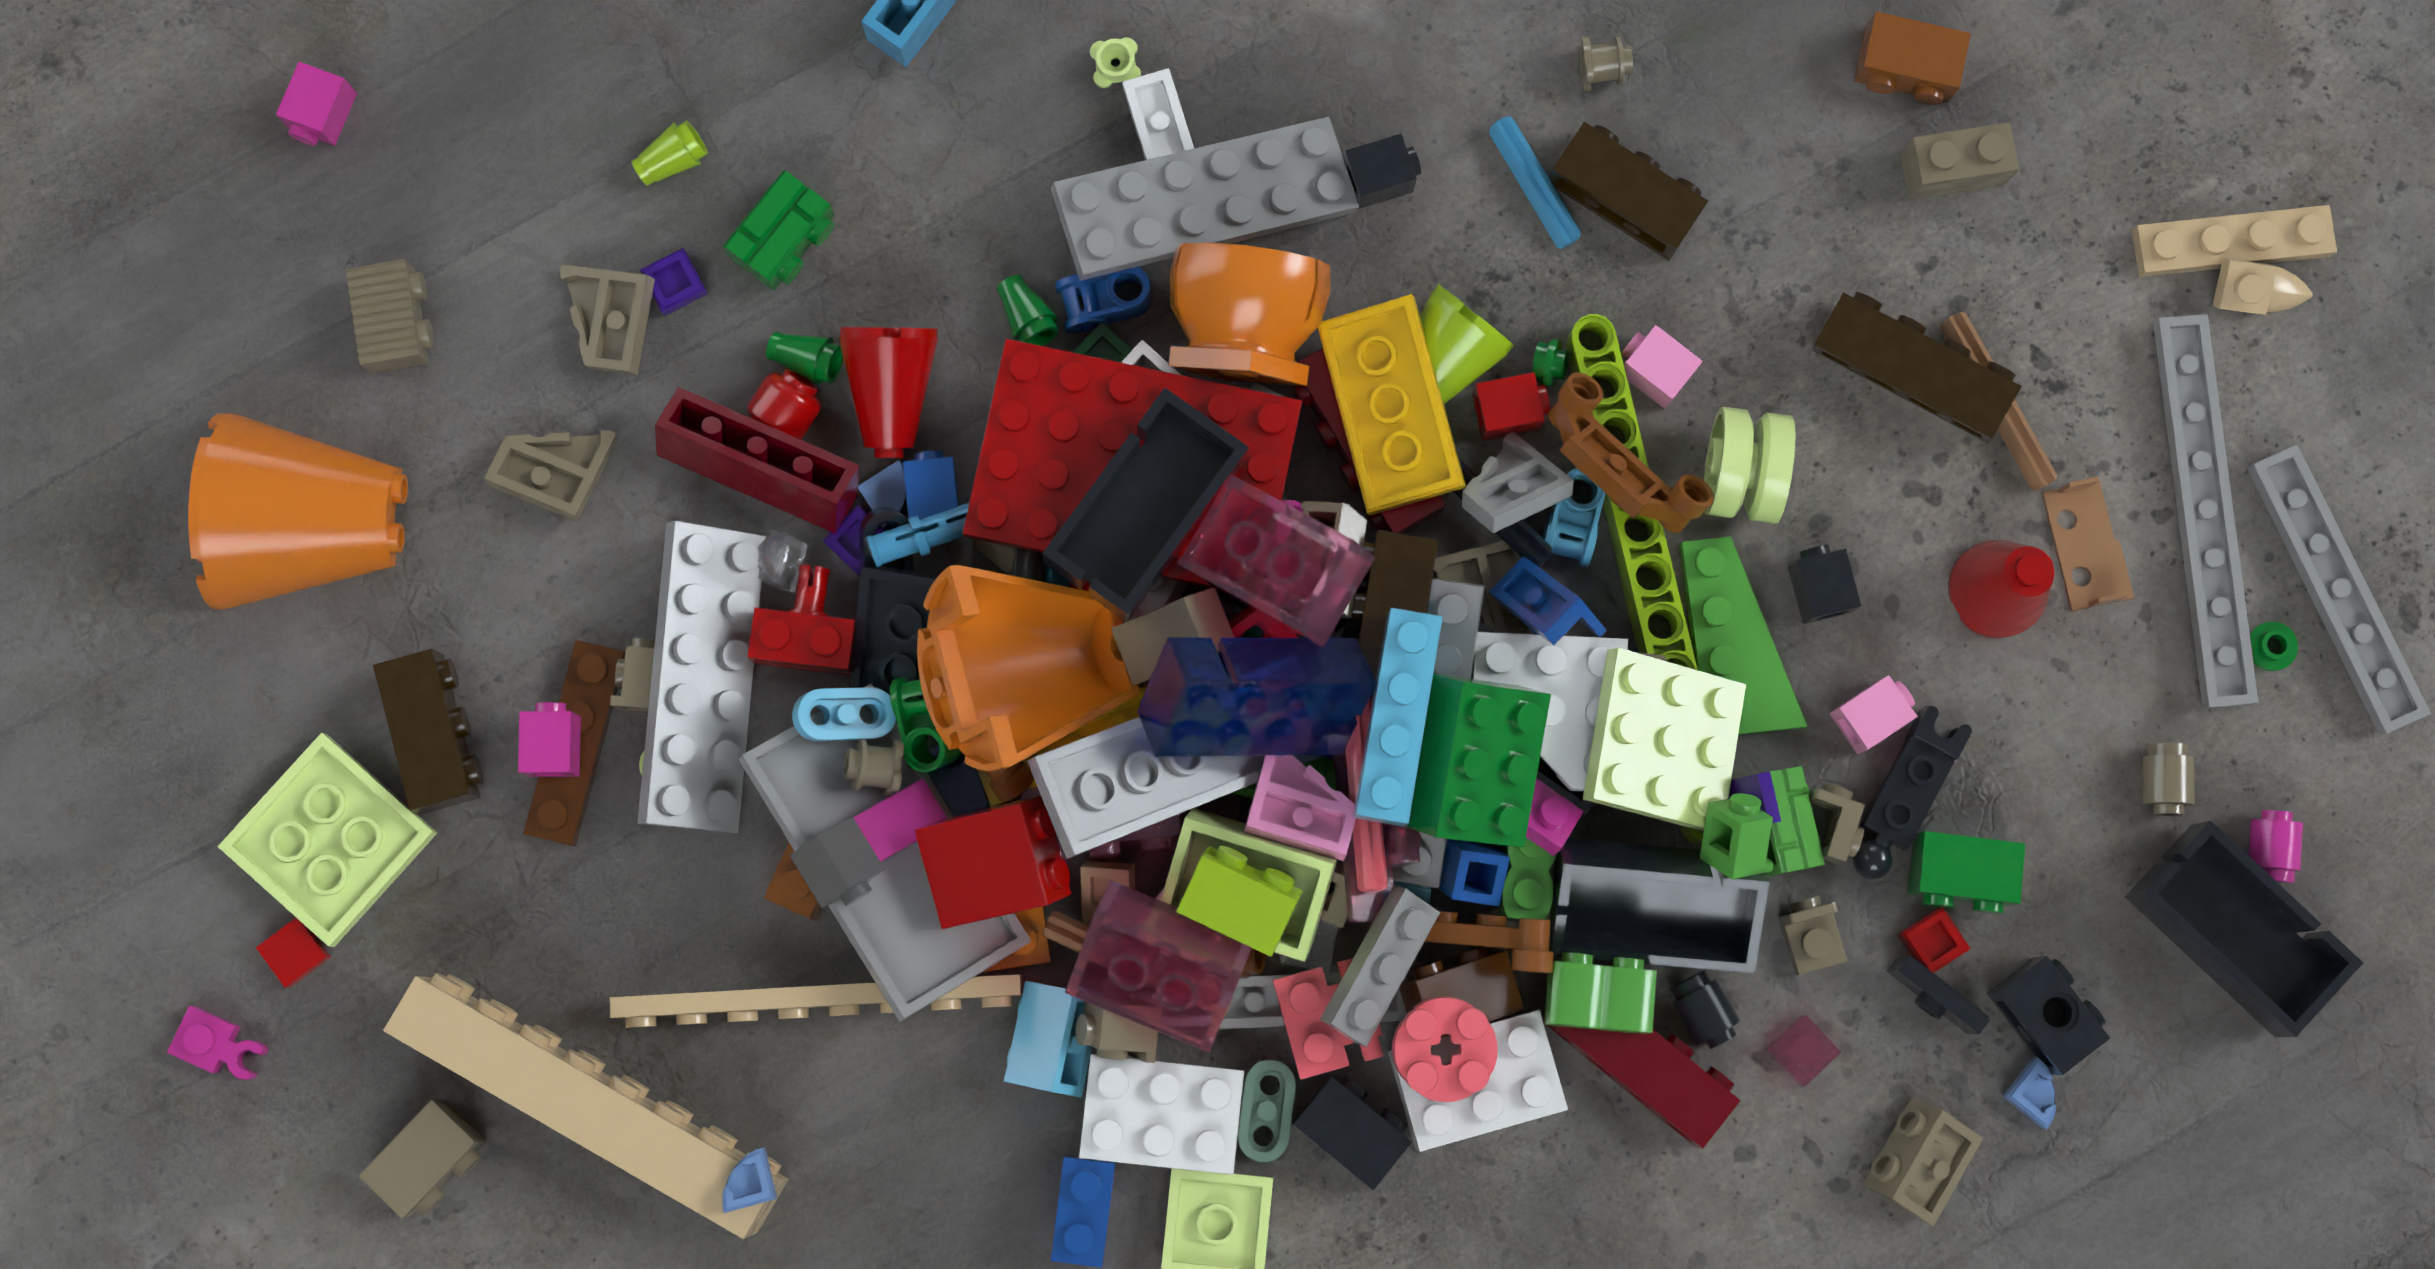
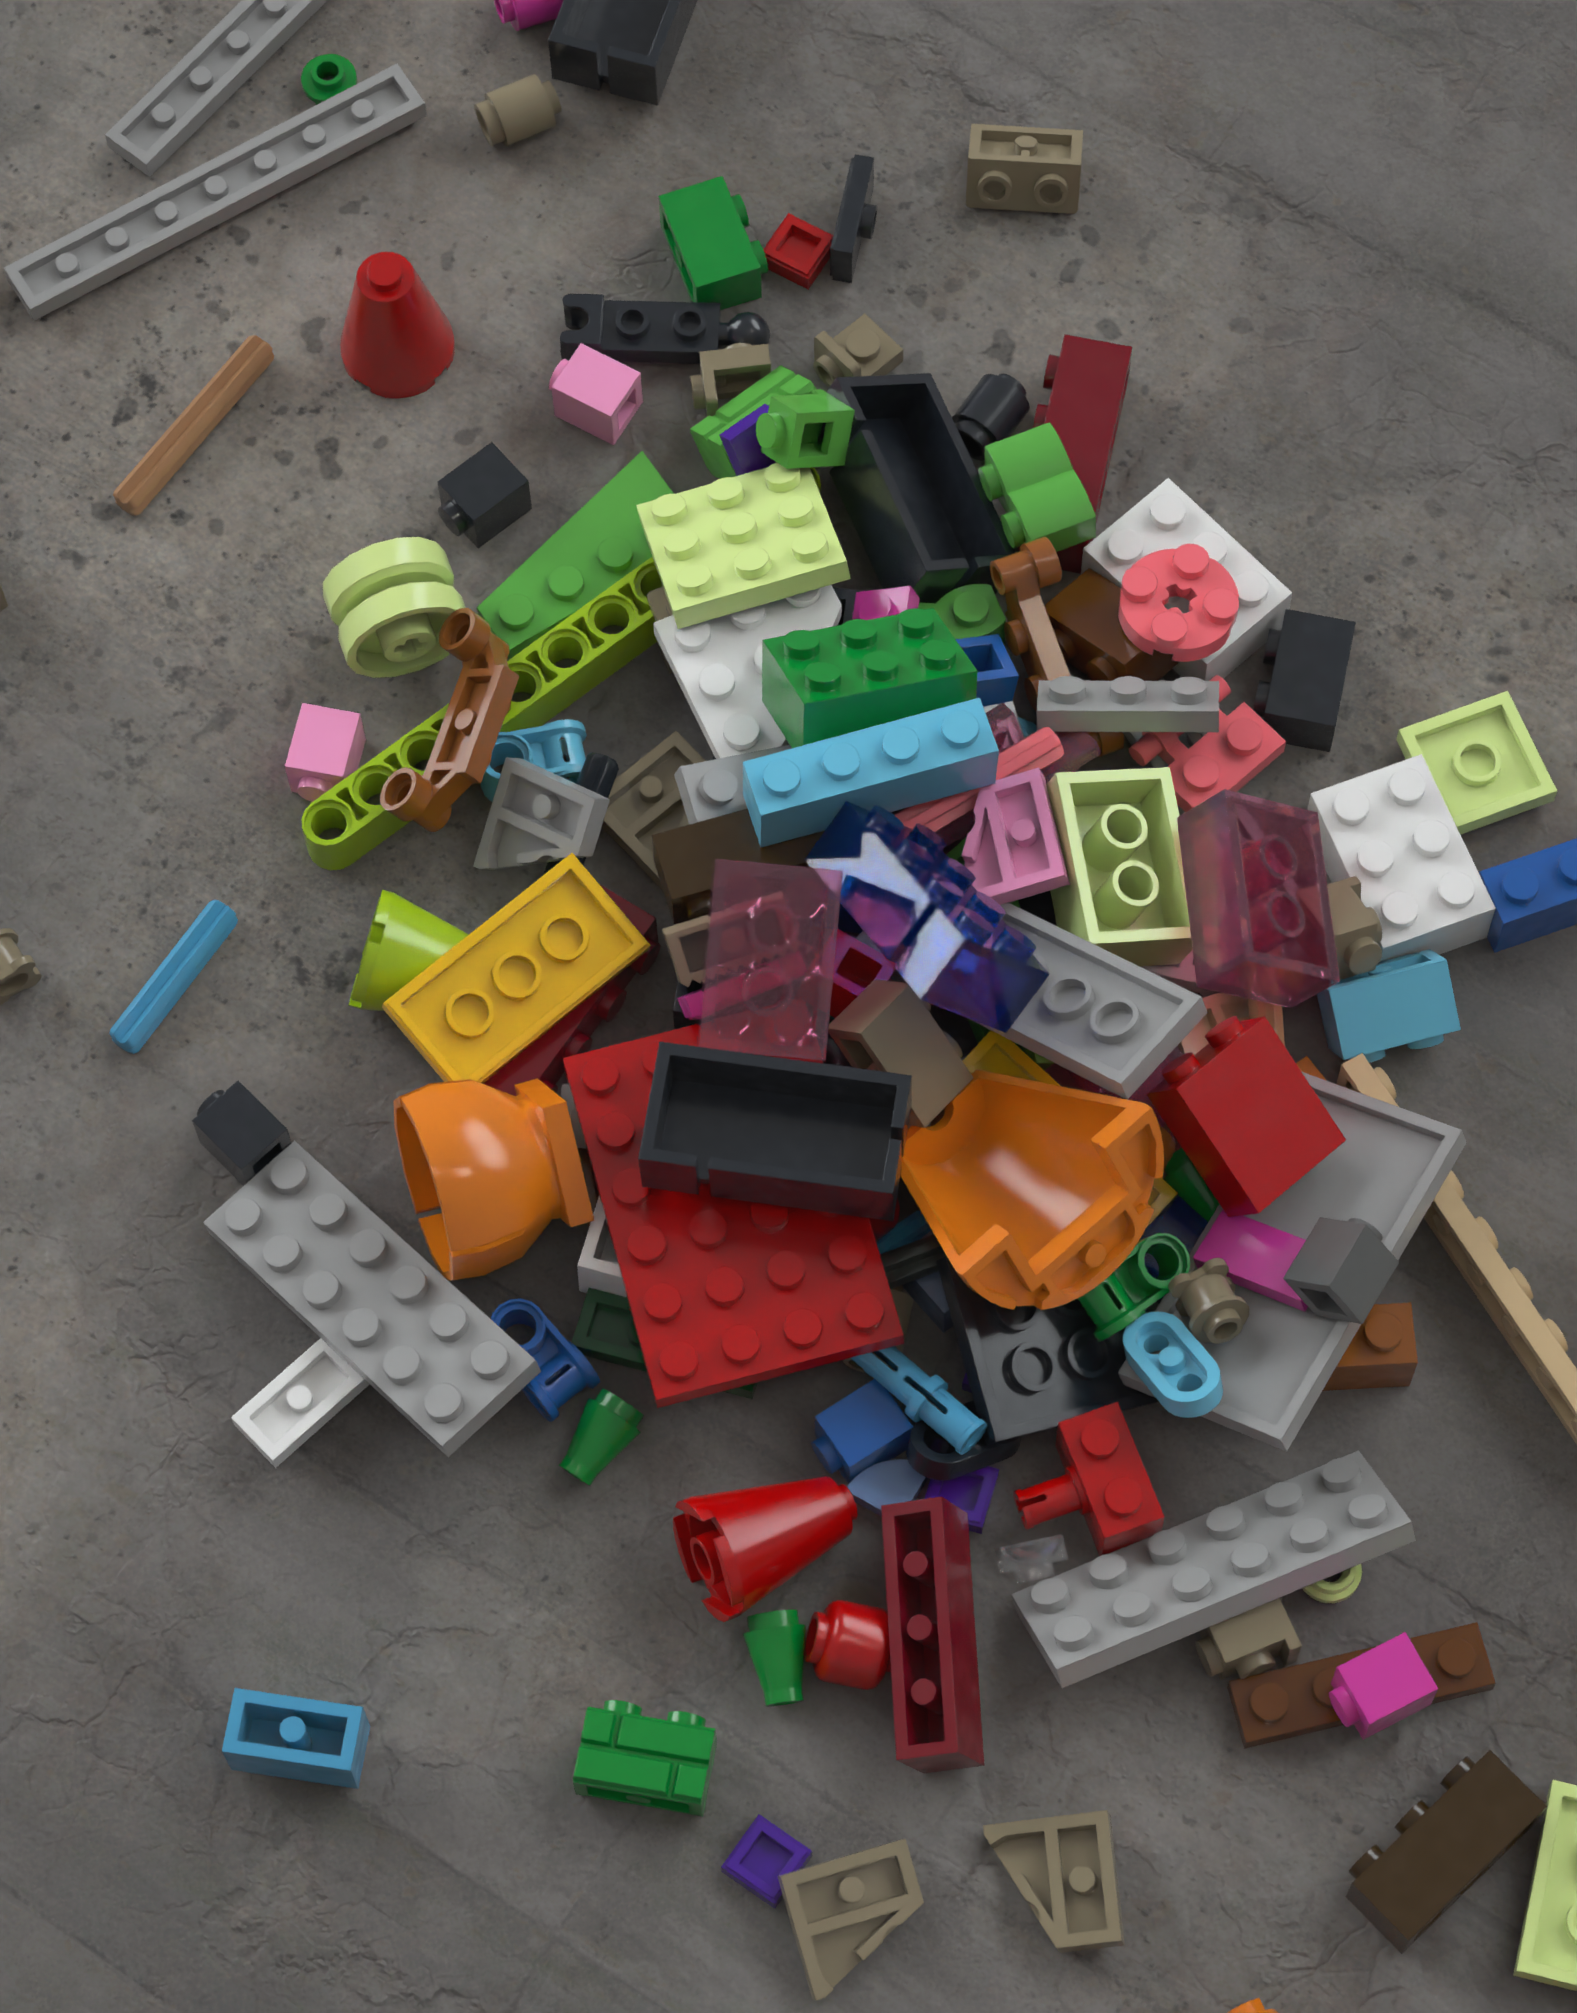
camera: 110 degrees left, 15 degrees down
(670, 153) = (615, 1941): lime cone -> none
(1105, 52) = (249, 1471): yellowish green plate -> none
(1240, 899) = (1146, 841): lime brick -> none
(1266, 1110) = (1329, 765): sand green plate -> none
(1510, 406) = (447, 879): red brick -> none
(1543, 602) = (657, 724): blue panel -> none
(1550, 362) = (376, 863): green plate -> none
(1627, 189) = (138, 872): dark brown brick -> none
(1803, 1050) = (976, 317): clear pink plate -> none
(1916, 366) = (201, 503): dark brown brick -> none
(2022, 1000) = (814, 145): black brick -> none
(2034, 1093) = (898, 105): medium blue tile -> none
(2087, 545) = (305, 284): medium nougat piece -> none

